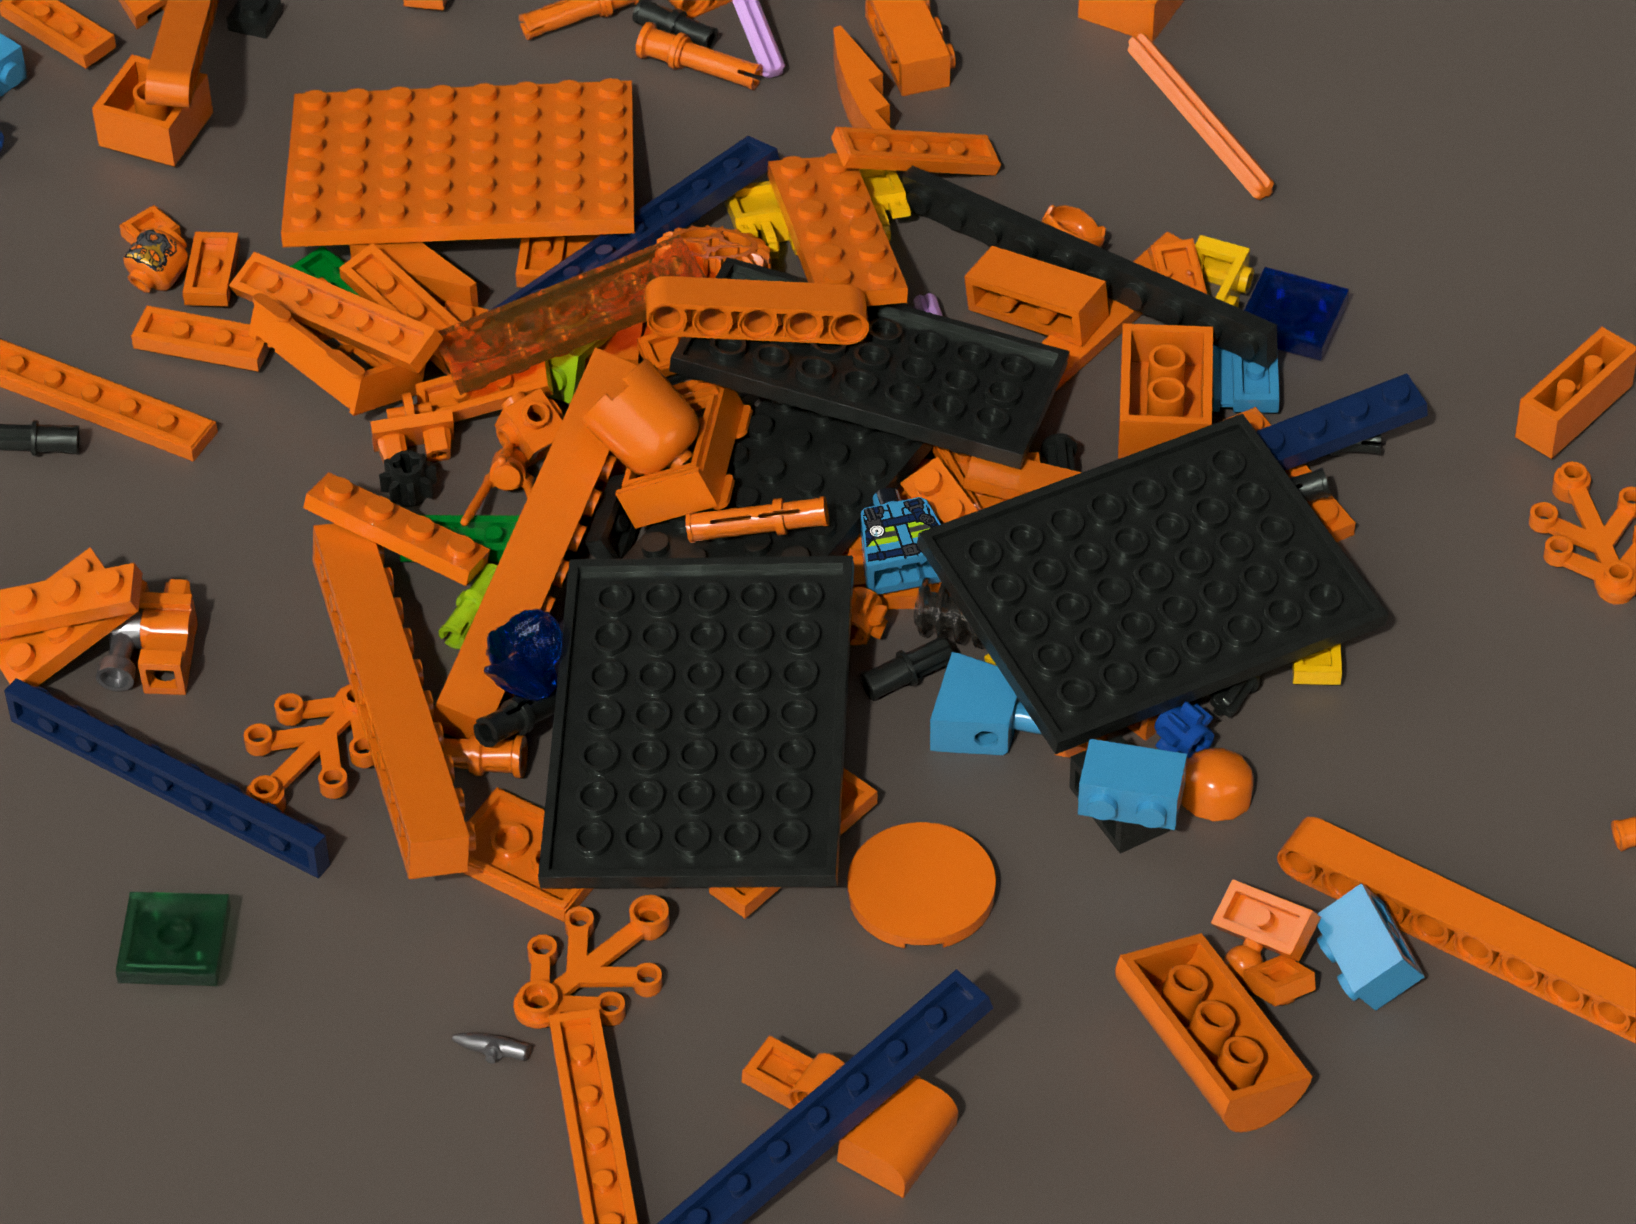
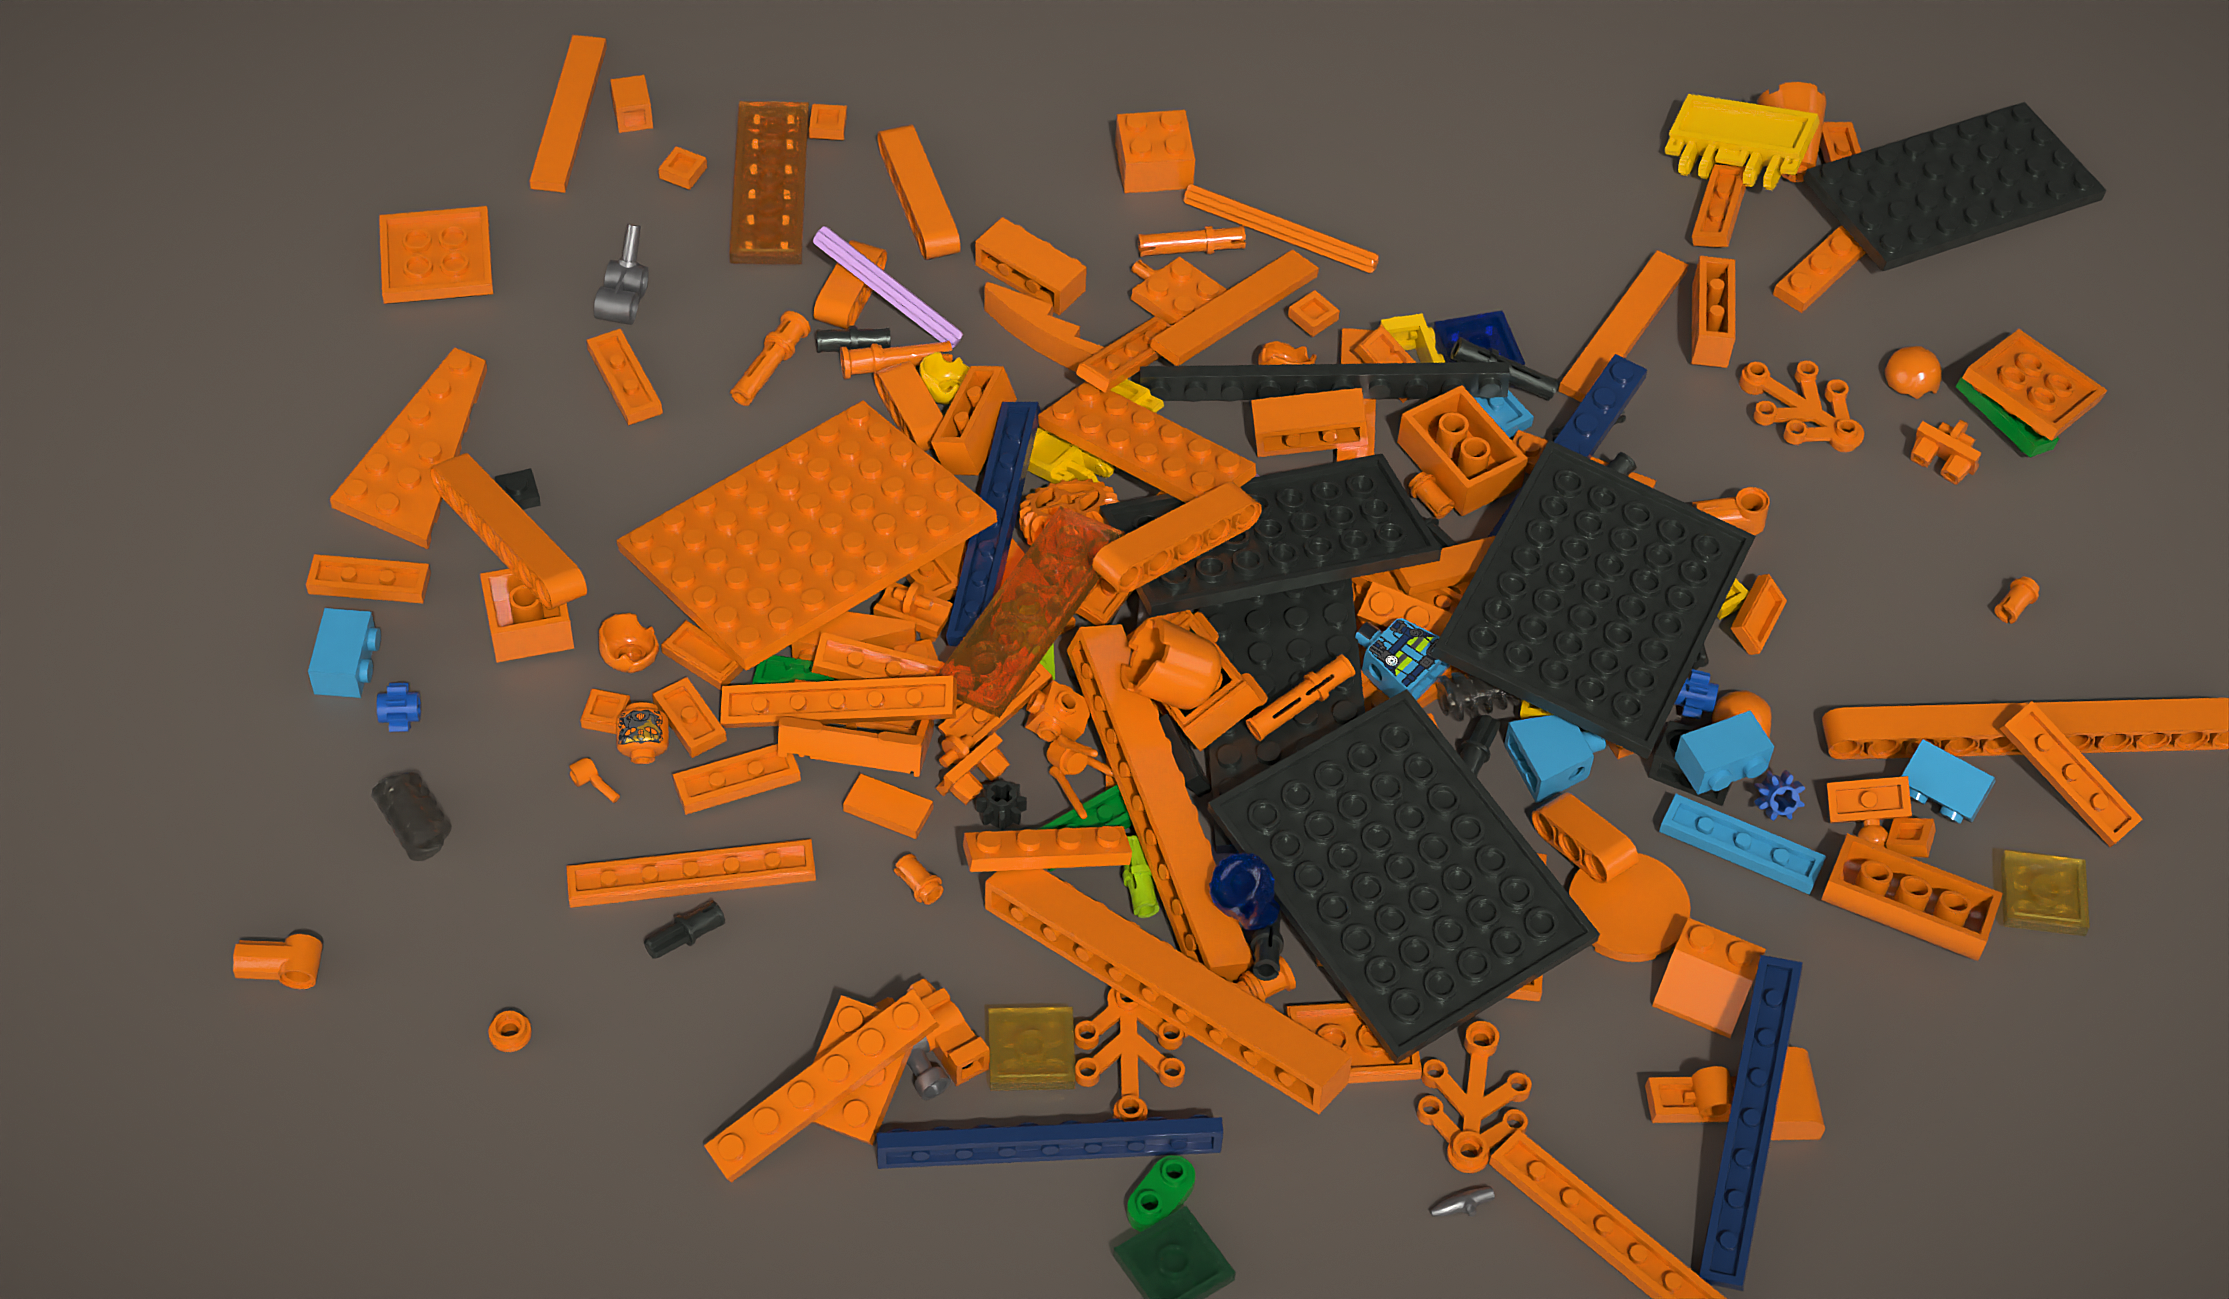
camera: 40 degrees left, 5 degrees up
(80, 269) = (585, 771): none -> orange hand
(214, 179) = (627, 644): none -> orange hair
(229, 692) = (1031, 1048): none -> clear yellow plate
(229, 874) = (1161, 1190): none -> green plate
(267, 218) = (701, 655): none -> orange tile
(275, 512) = (926, 887): none -> orange pin
(312, 431) = (888, 806): none -> orange tile
(491, 271) = (915, 605): none -> orange hips
(669, 107) = (909, 403): none -> orange beam
(697, 138) = (971, 420): none -> orange brick
(722, 96) = (942, 377): none -> yellow hair
(917, 964) = (1708, 977): none -> orange slope
(927, 795) = (1585, 837): none -> orange beam
(1034, 131) = (1173, 290): none -> orange plate
(1069, 160) = (1234, 308): none -> orange tile
(1090, 885) = (1742, 843): none -> dark azure plate
(1101, 414) = (1425, 488): none -> orange pin
(1110, 91) = (1192, 241): none -> orange pin
(1150, 204) = (1313, 313): none -> orange plate
(1186, 870) = (1779, 785): none -> blue gear
(1291, 342) = (1520, 375): none -> pearl dark grey pin
(1334, 696) = (1758, 614): none -> orange tile
(1375, 1110) = (2044, 893): none -> clear yellow plate
(1415, 593) = (1744, 511): none -> orange piece
(1491, 362) = (1625, 323): none -> orange tile
(1512, 1011) = (2071, 774): none -> orange plate

